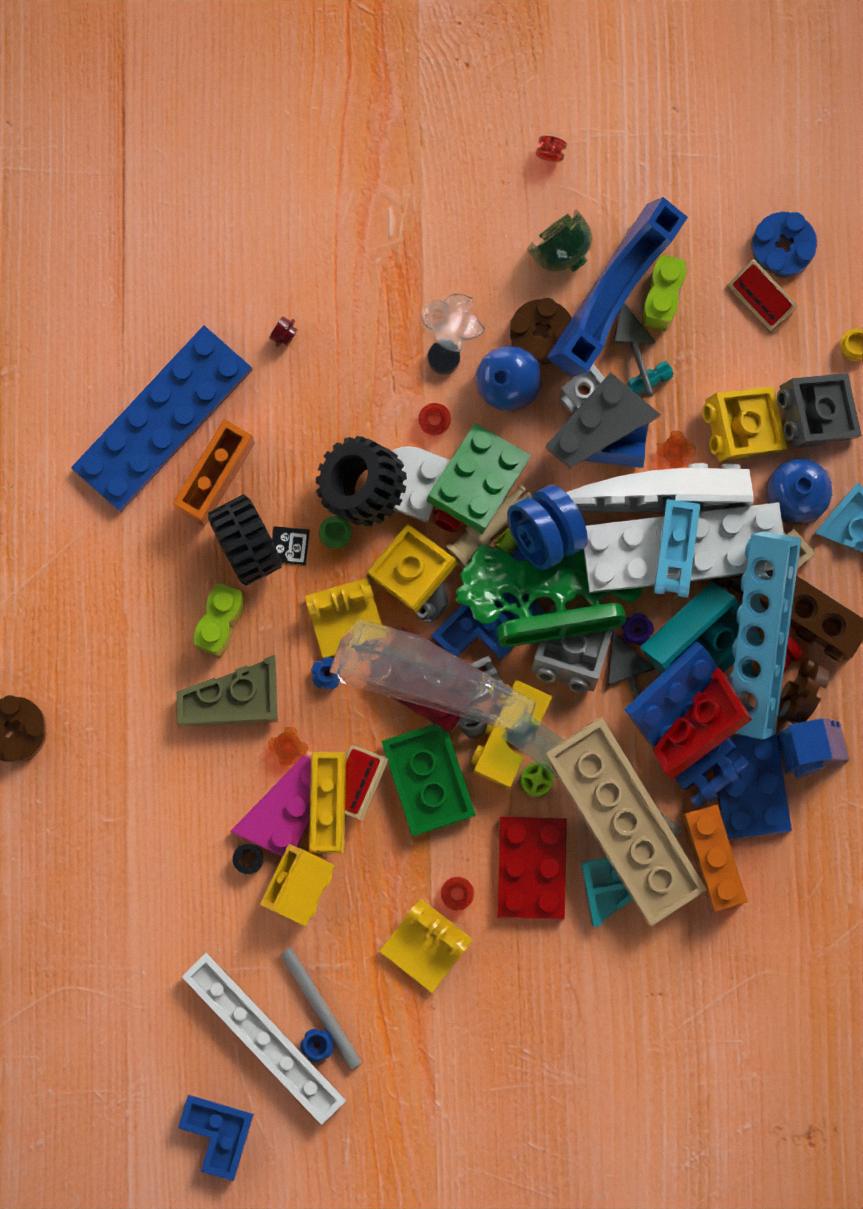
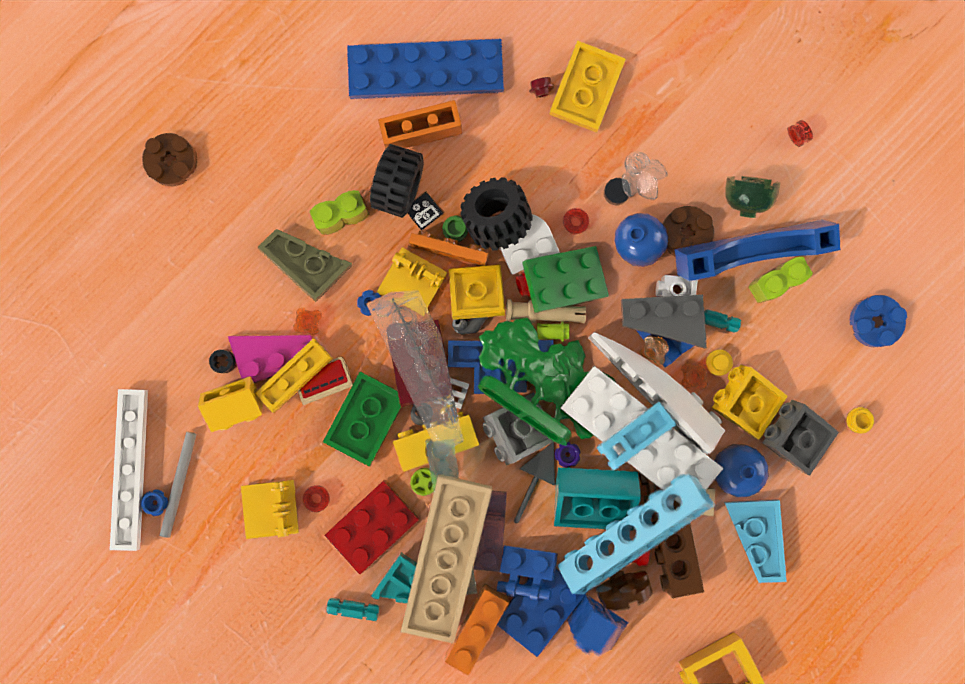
camera: 45 degrees right, 5 degrees up
(226, 1128) = (57, 498): blue plate -> none
(323, 291) = (587, 86): none -> yellow plate
(348, 554) = (449, 248): none -> orange plate
(547, 527) = (574, 347): blue wheel -> none
(590, 956) = (352, 609): none -> teal axle
(618, 453) = (659, 345): none -> clear orange plate
(632, 331) = (738, 283): dark grey piece -> none
(647, 767) = (491, 540): none -> plate
(672, 693) = (549, 518): blue plate -> none
(685, 416) = (719, 362): none -> yellow plate
(709, 722) = (547, 552): red wing -> none
(762, 295) = (835, 338): red slope -> none

